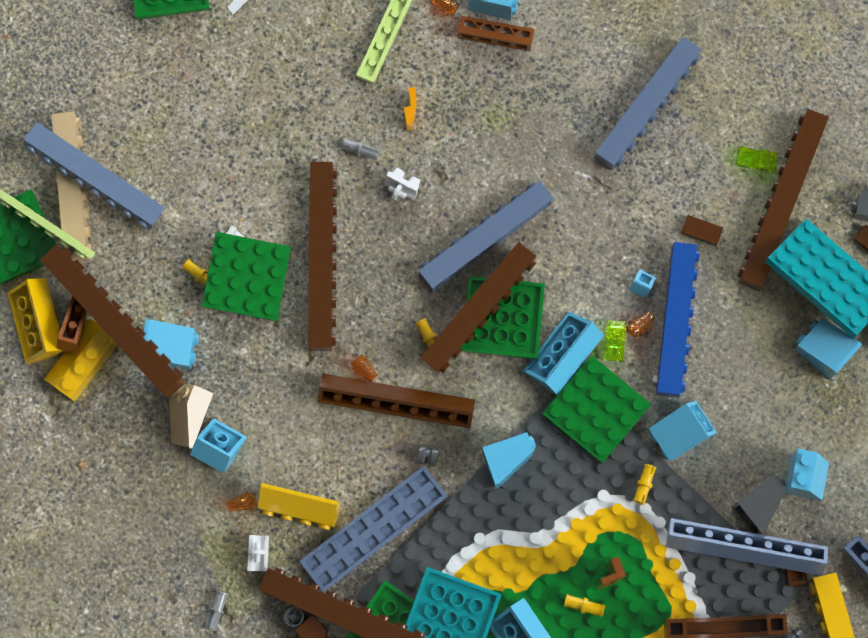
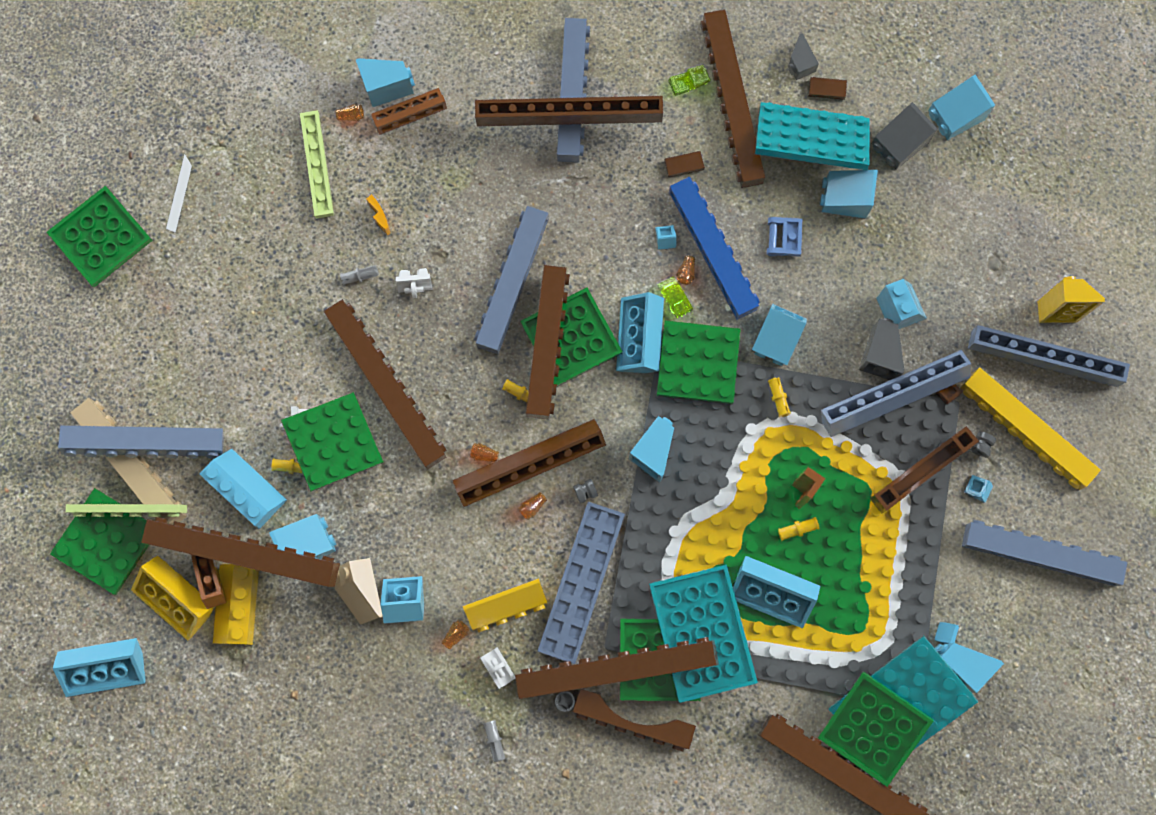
camera: 35 degrees left, 0 degrees up
(150, 267) = (243, 487): none -> medium azure slope
(375, 438) = (531, 506): none -> clear orange cone
(629, 122) = (569, 111): none -> reddish brown brick
(750, 354) = (790, 236): none -> medium blue plate

